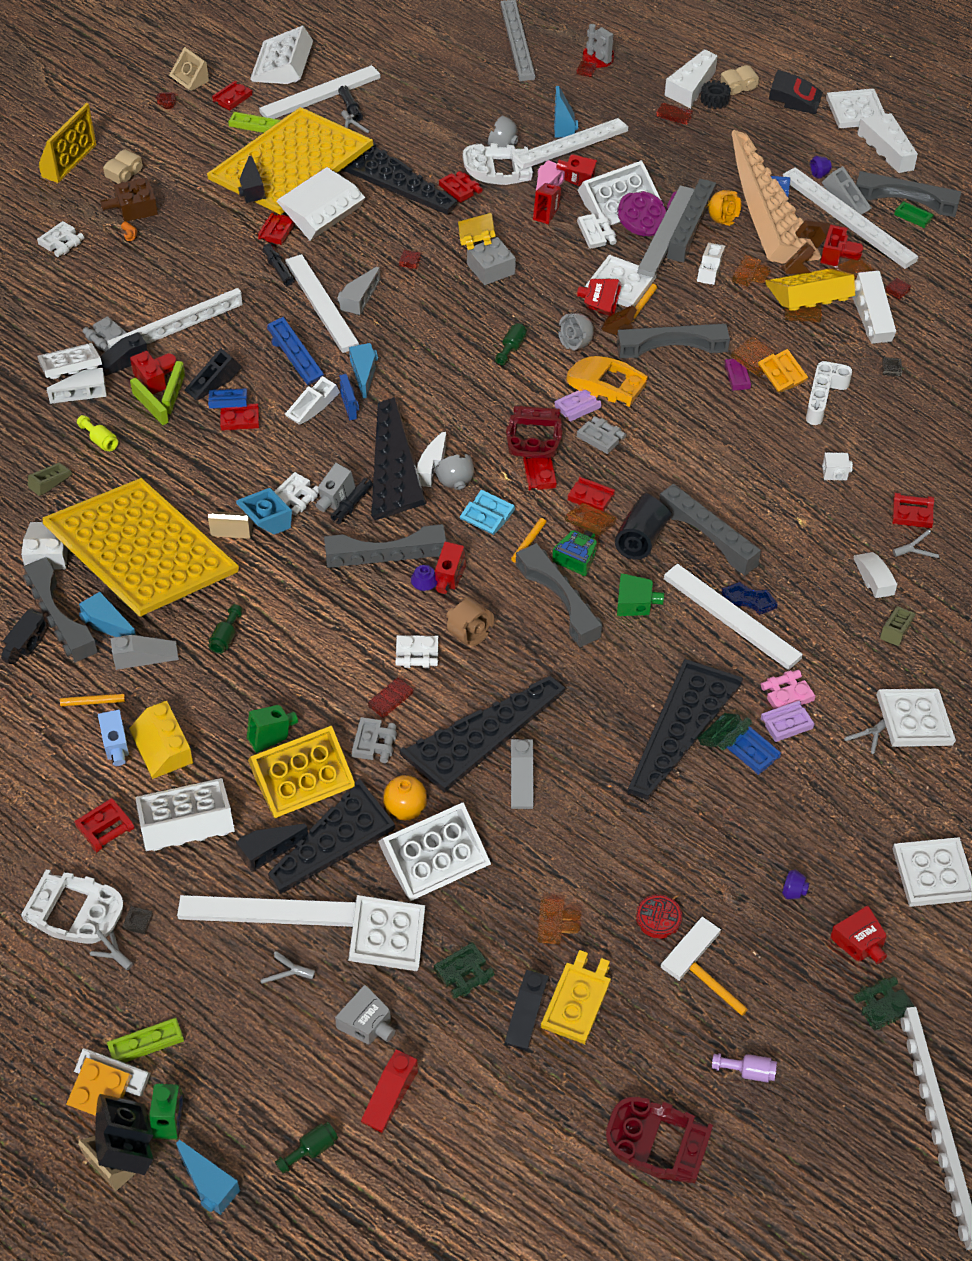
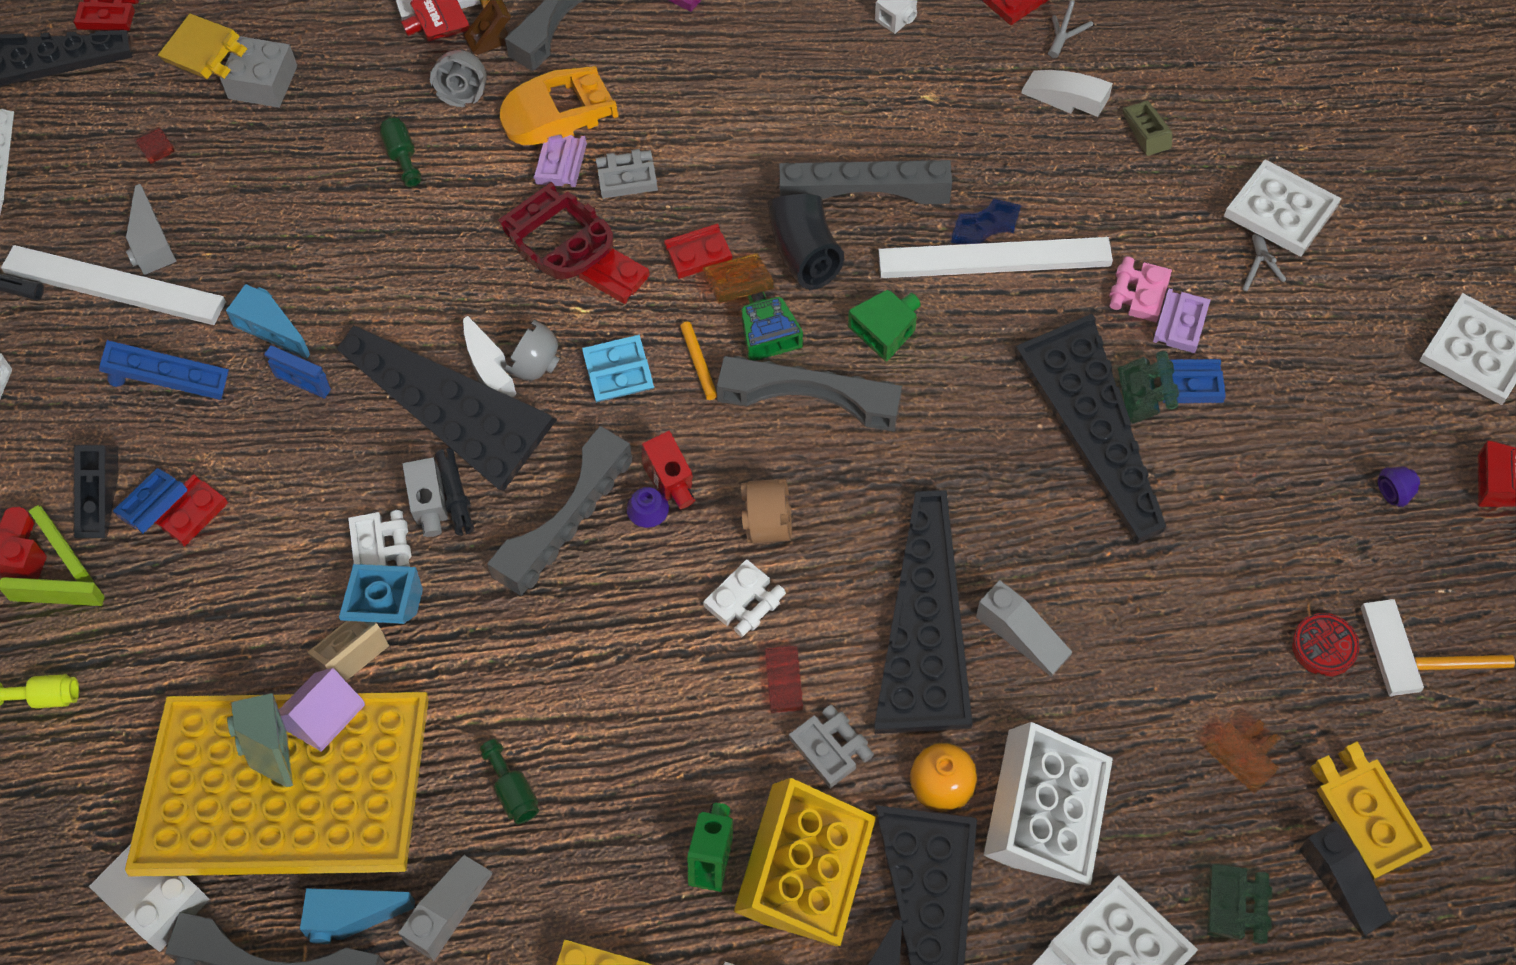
camera: 45 degrees left, 10 degrees up
(47, 478) = (40, 828): olive slope -> none
(150, 516) = (262, 737): none -> sand green slope
(187, 532) = (321, 708): none -> lavender slope
(312, 401) = (258, 414): white slope -> none

